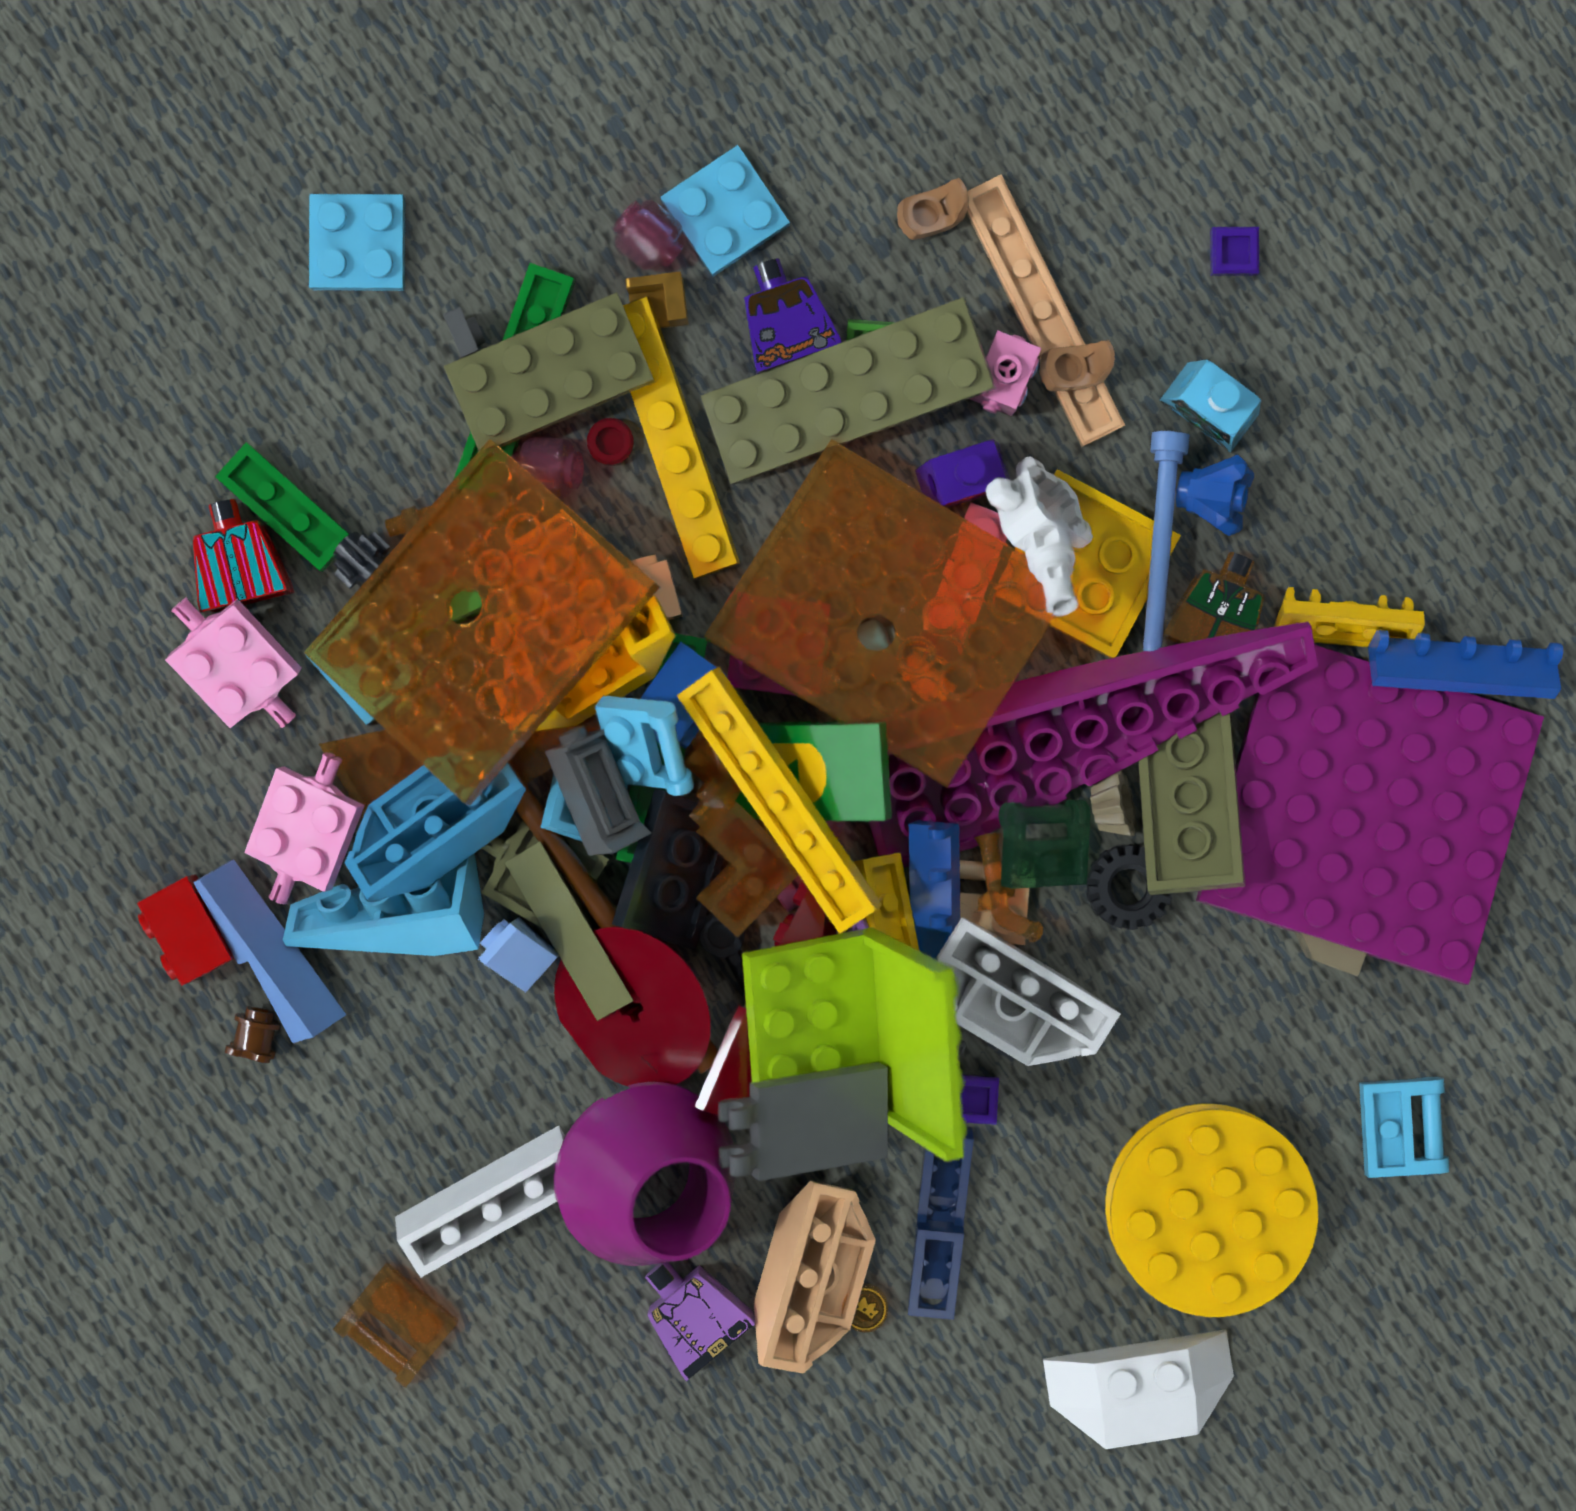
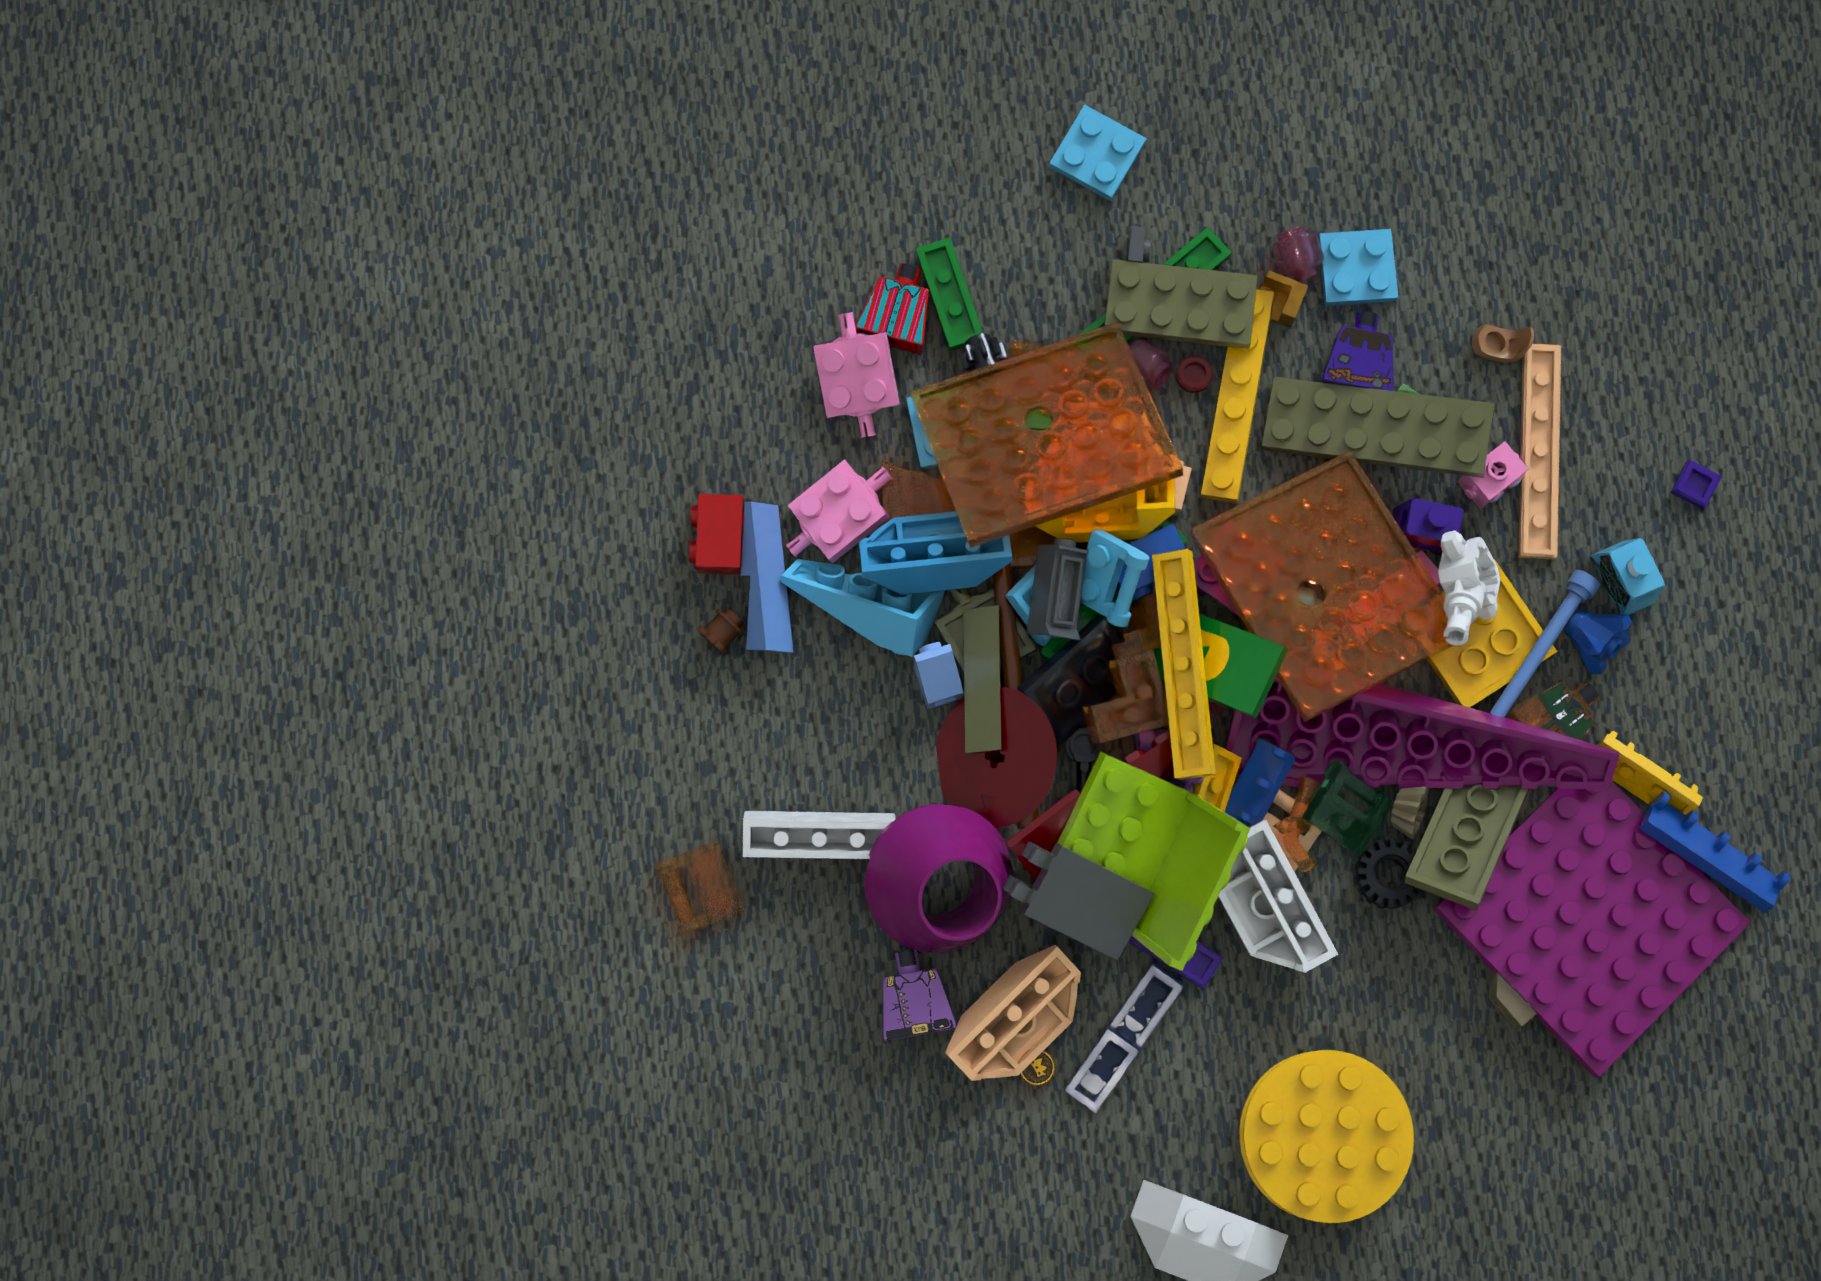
camera: 25 degrees right, 10 degrees down
(1076, 366) = (1545, 497): medium nougat hair -> none
(1389, 1127) = (1485, 1154): medium azure plate -> none

